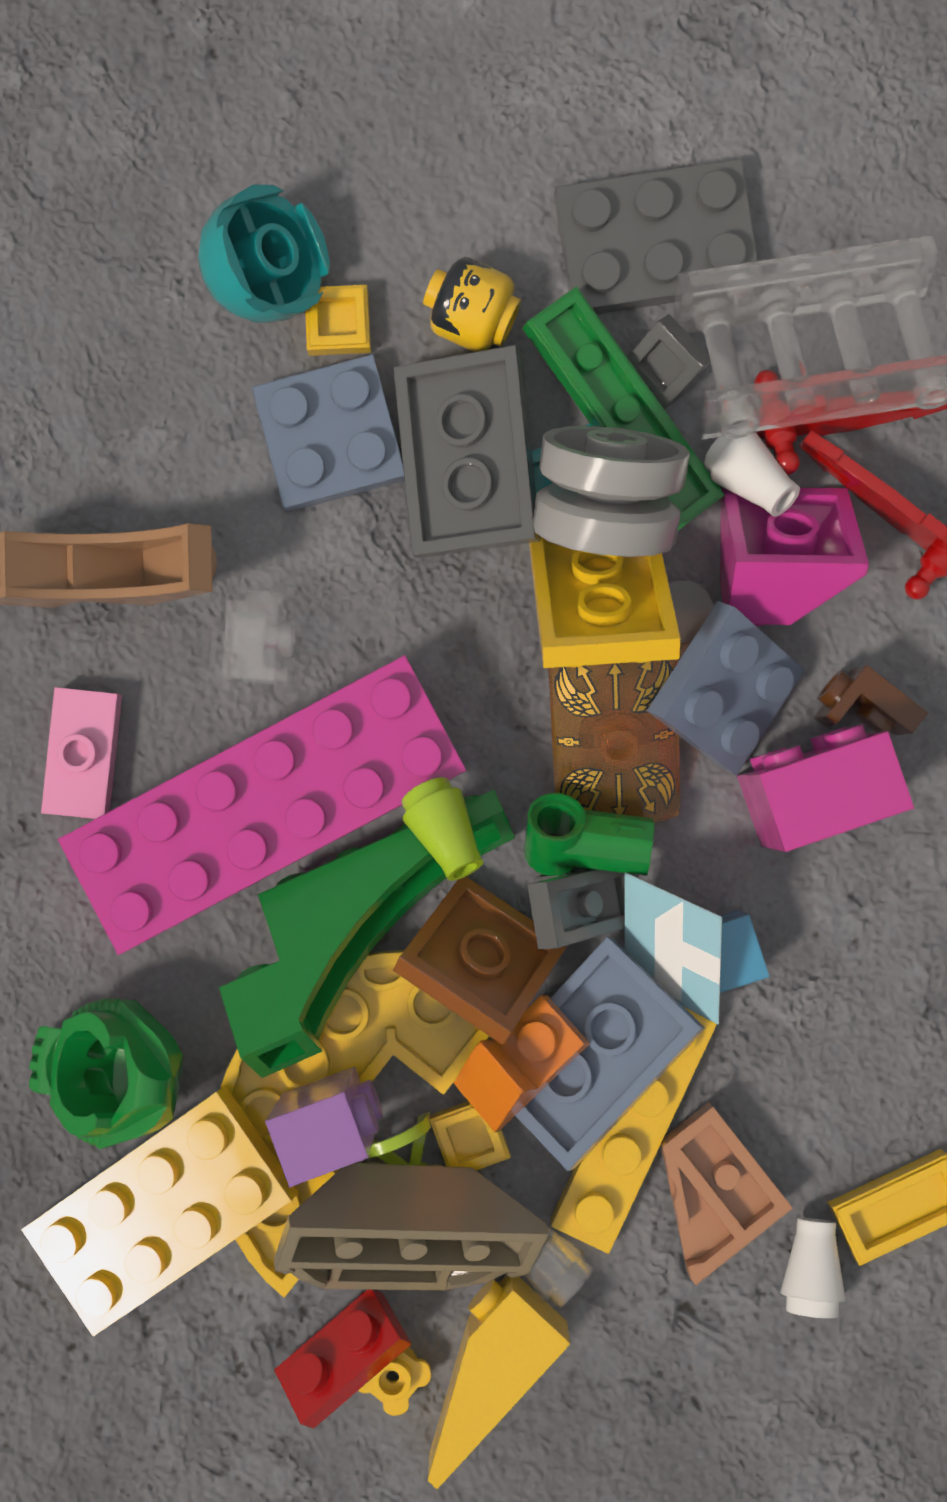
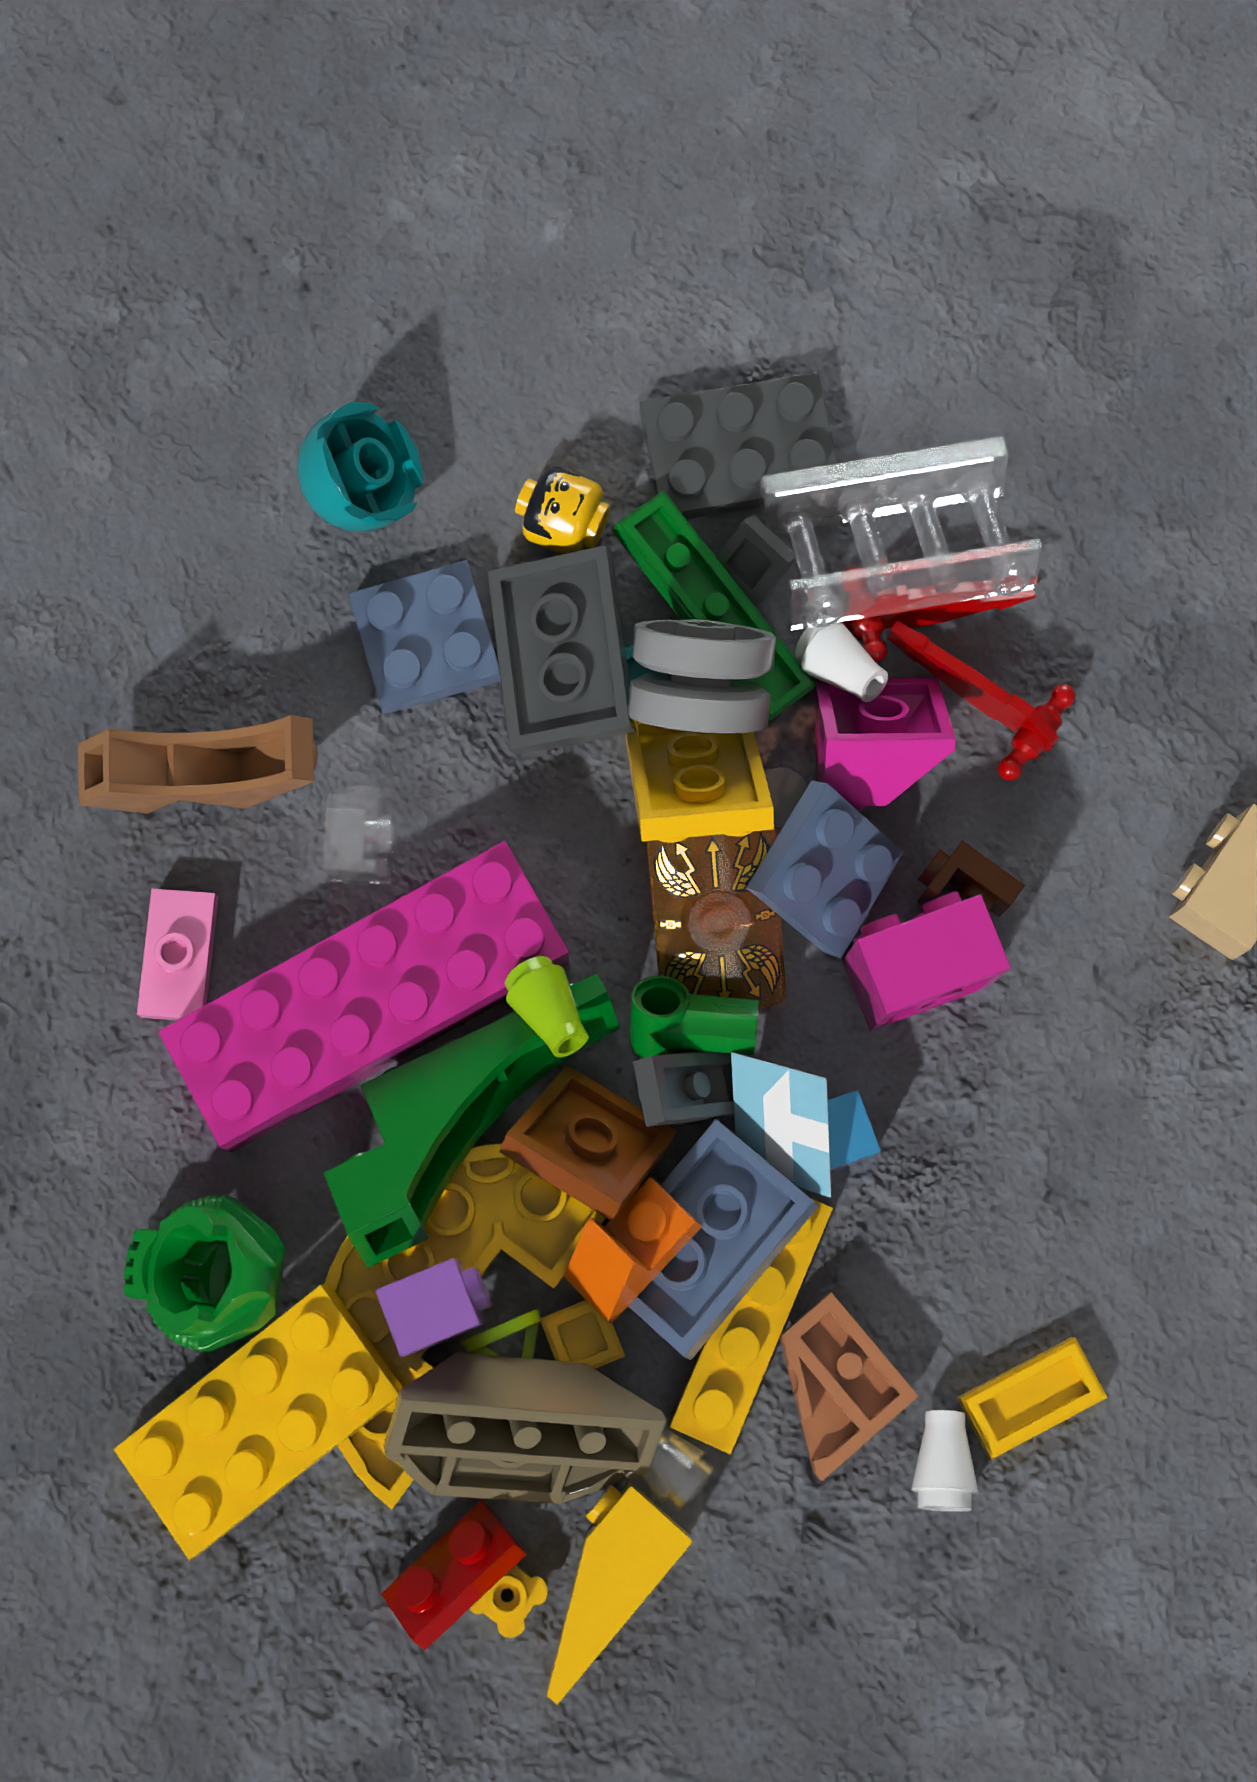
camera: 15 degrees left, 10 degrees down
(339, 322) = (433, 531): yellow tile -> none

